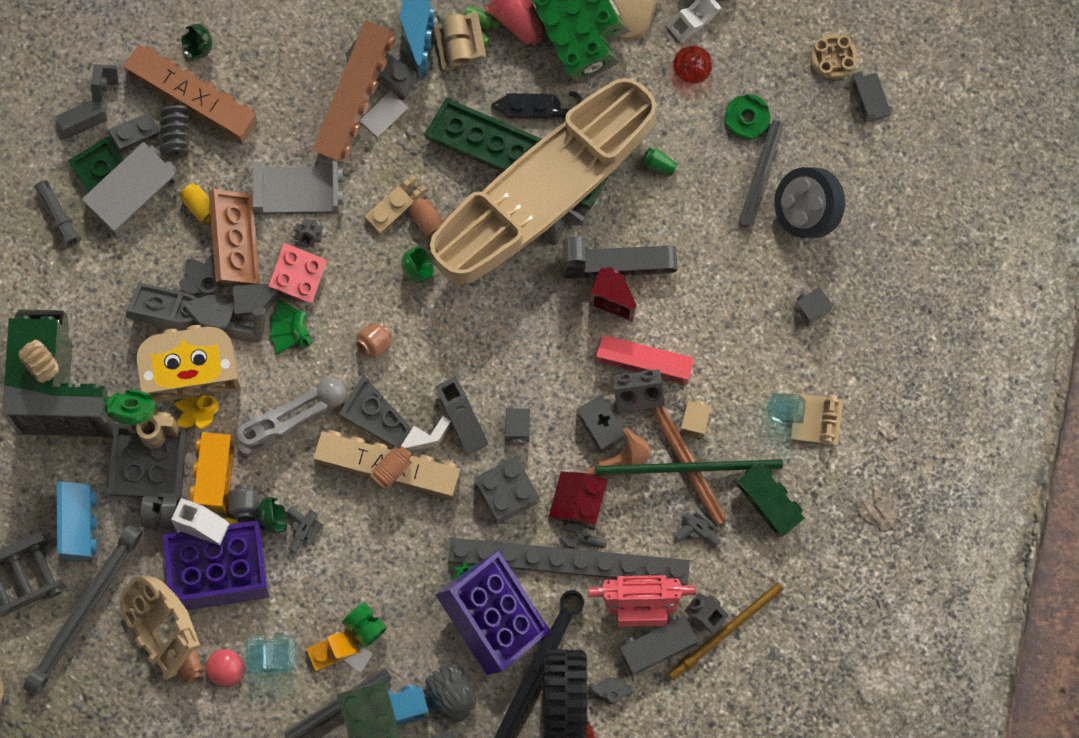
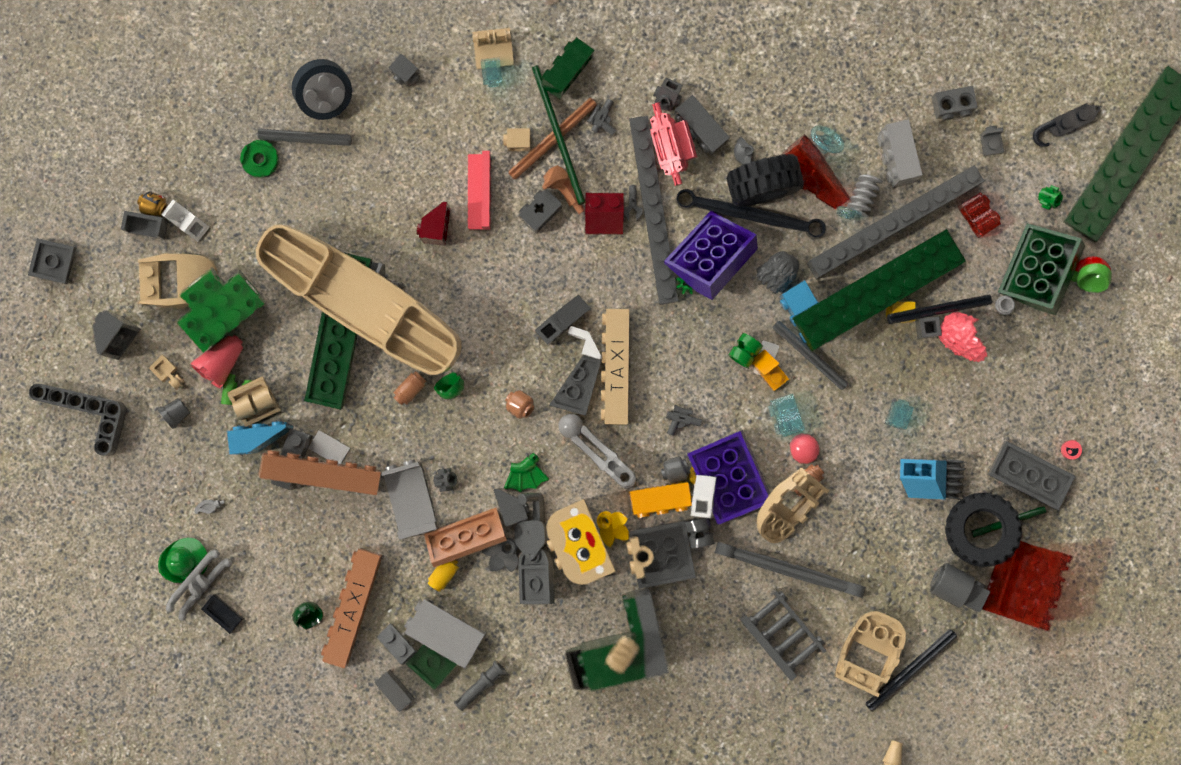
camera: 100 degrees left, 10 degrees up
(76, 522) = (725, 594): dark azure slope -> none
(101, 77) = (355, 683): dark grey bracket -> none
(130, 408) = (639, 571): green tile -> none
(172, 129) = (387, 612): dark grey piece -> none
(272, 516) = (680, 444): dark green hair -> none
(297, 273) = (481, 478): coral hinge -> none
(391, 467) = (620, 360): nougat head -> none
(394, 205) = (404, 419): tan hinge -> none
(506, 490) = (612, 269): dark grey brick -> none
(517, 425) = (559, 274): dark grey brick -> none
(533, 105) = (292, 327): black plate -> none
(628, 261) = (413, 254): dark grey beam -> none
(639, 393) = (508, 186): dark grey brick -> none
(658, 161) = (315, 219): green cone -> none
(690, 660) = (706, 100): pearl gold bar -> none
(692, 64) = (226, 211): clear red hat -> none
(834, 56) = (191, 102): tan tile -> none
(870, 96) = (218, 66): dark grey panel -> none

